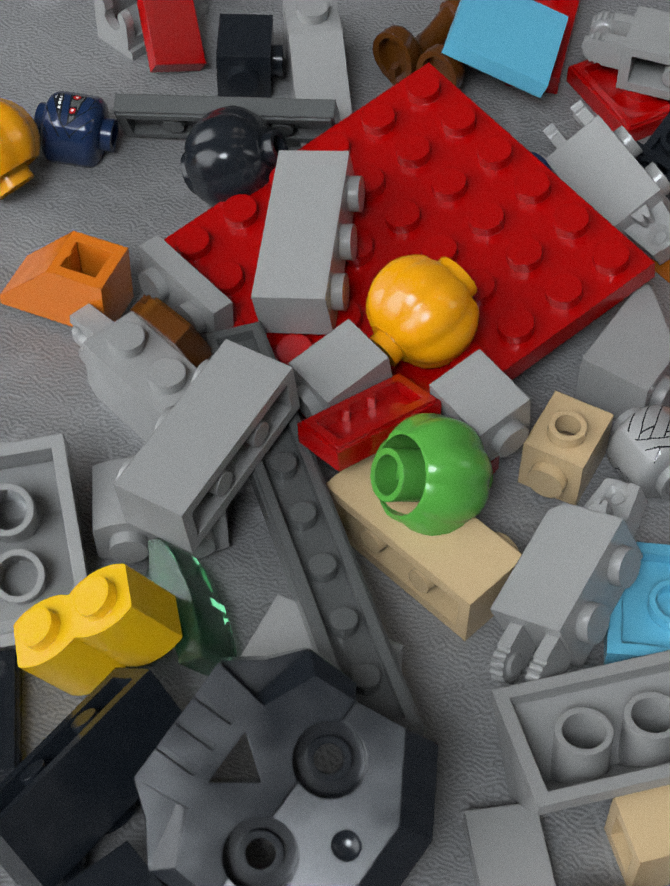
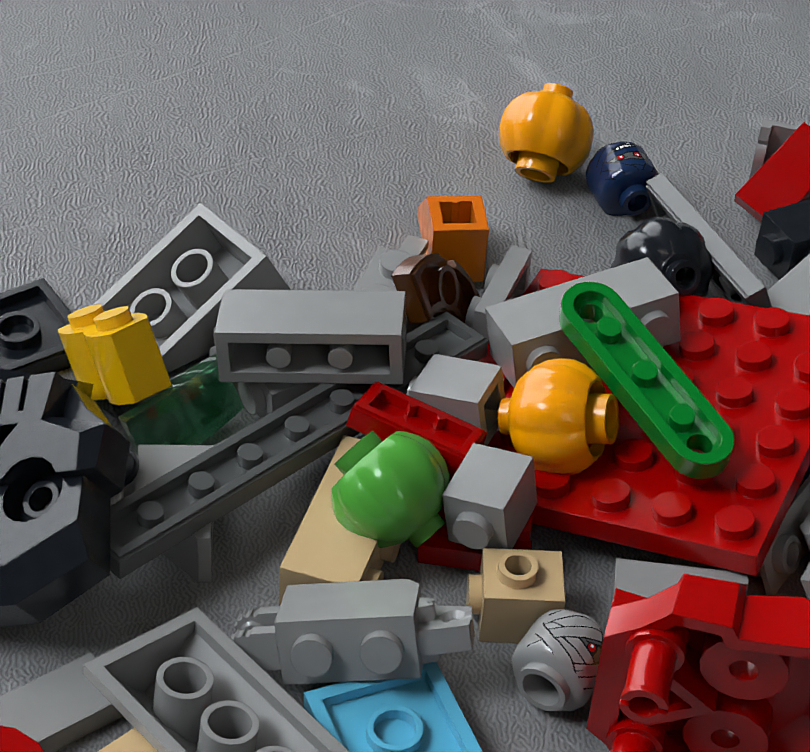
camera: 60 degrees right, 10 degrees down
(440, 225) = (646, 380): none -> green plate

